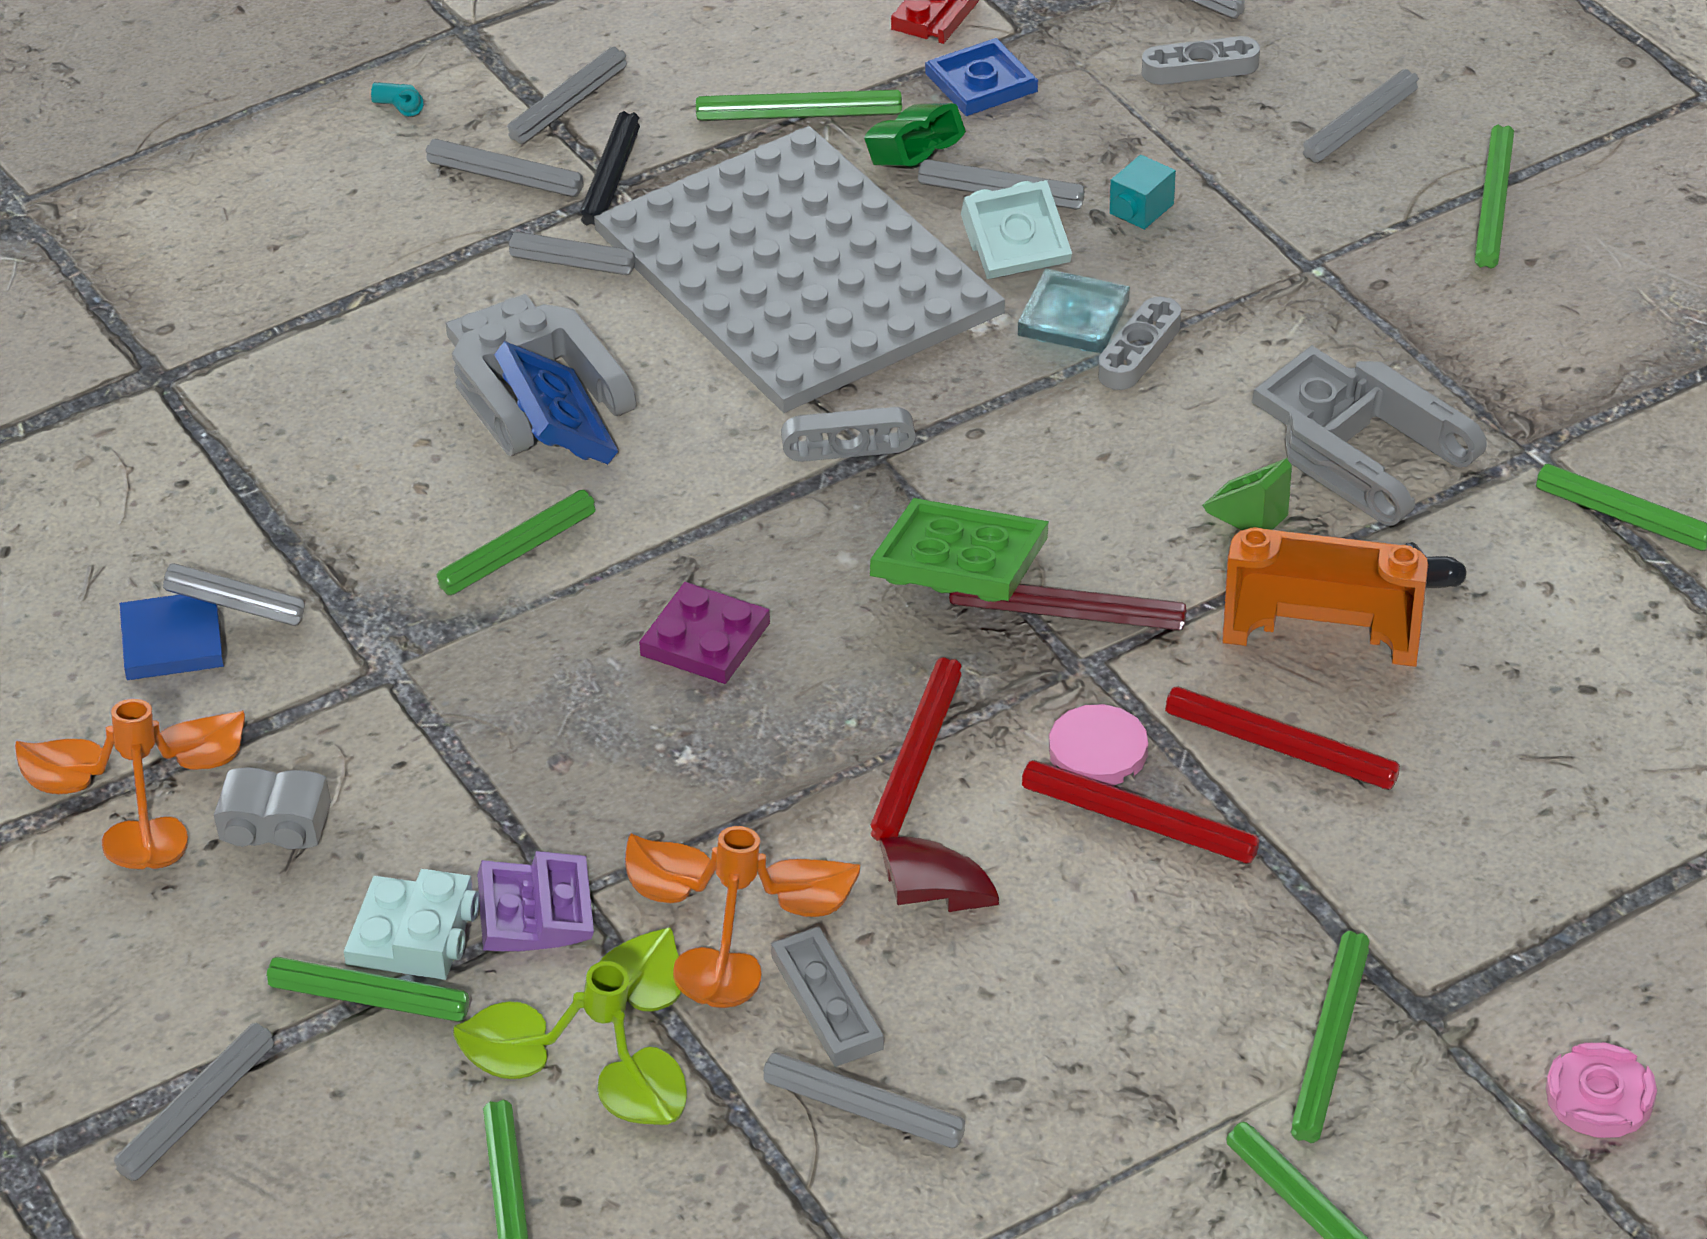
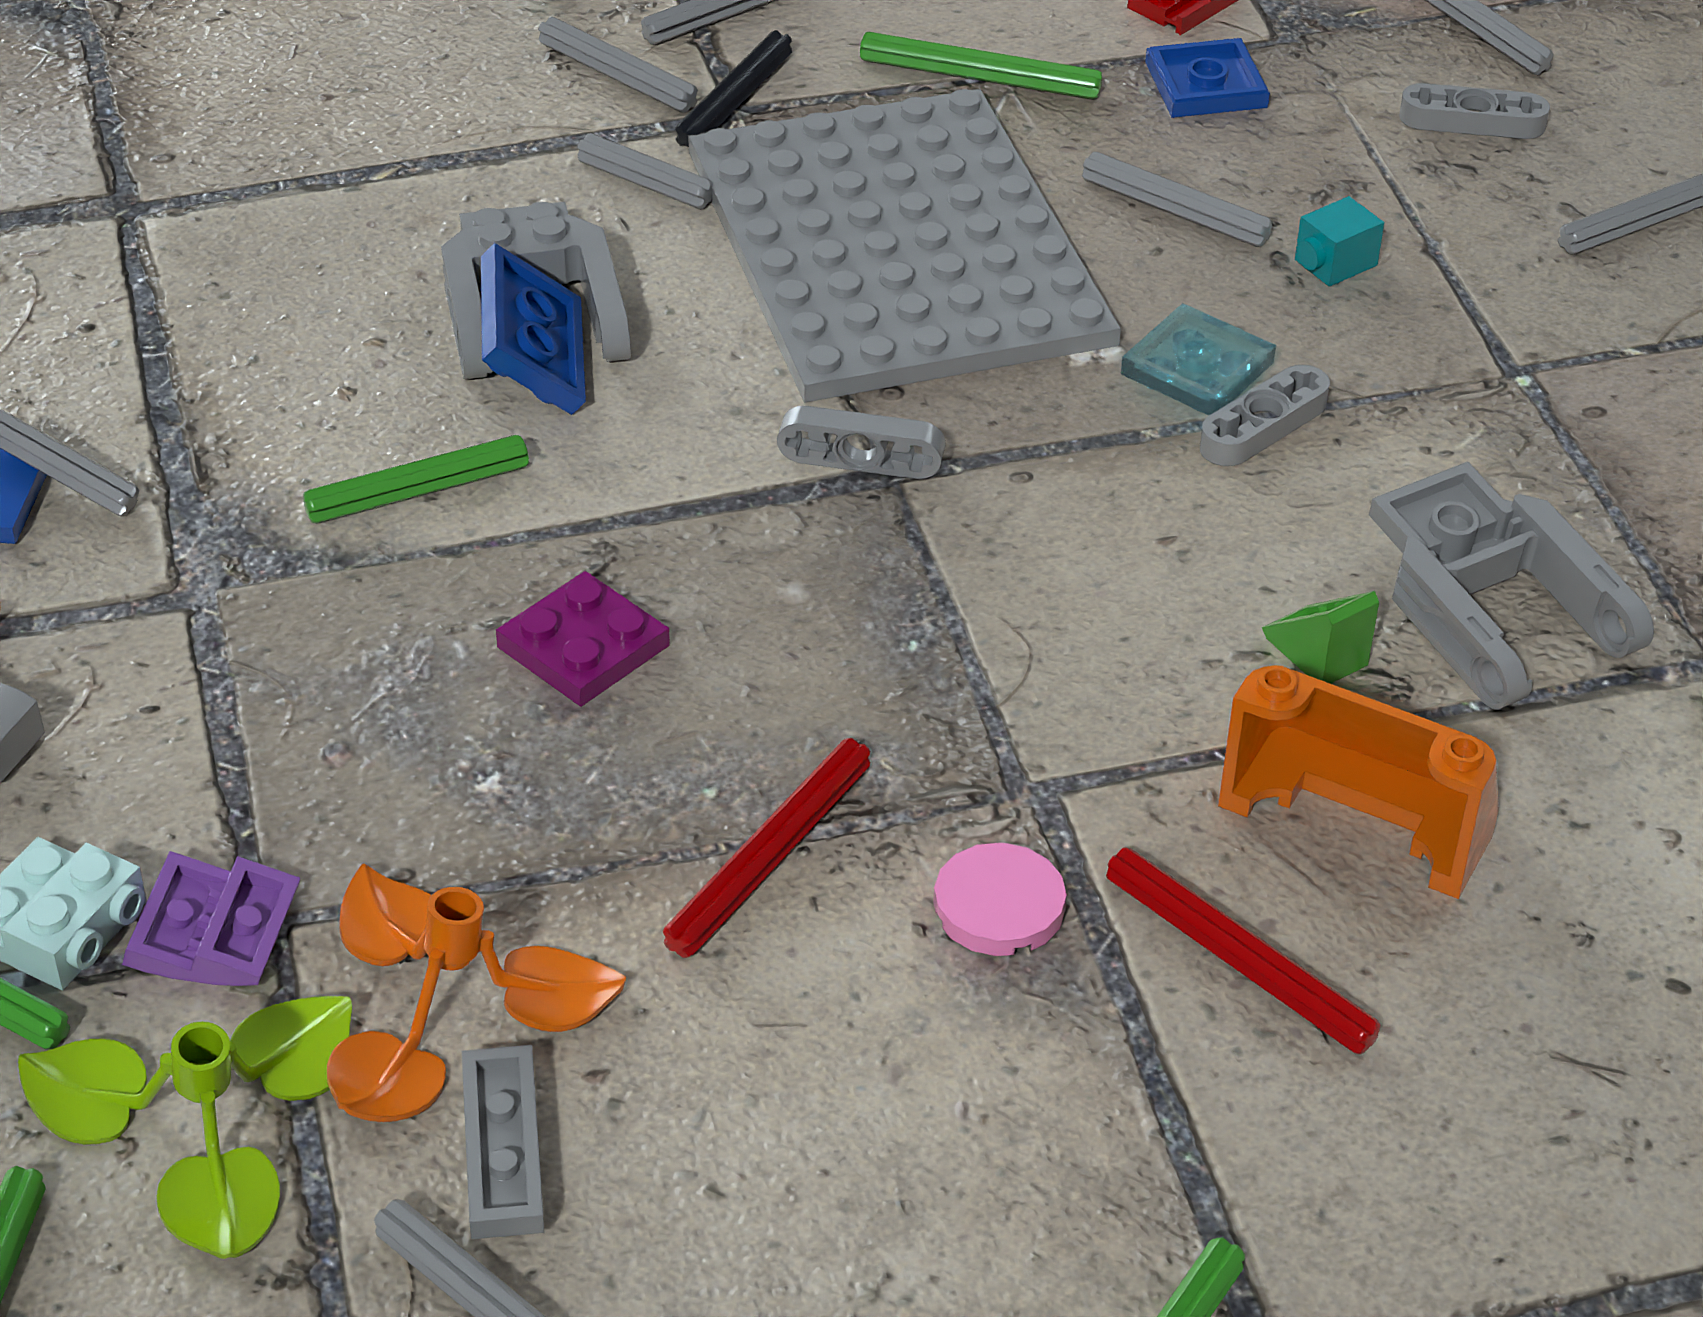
camera: 15 degrees right, 0 degrees up
(914, 134) = (1094, 121): green brick -> none
(930, 872) = (716, 1009): dark red brick -> none
(959, 549) = (926, 610): bright green plate -> none
(1015, 229) = (1167, 251): light aqua plate -> none
(1084, 606) = (1041, 709): dark red axle -> none
(1140, 812) = (1018, 1002): red axle -> none
(1443, 570) = (1524, 779): black arm -> none

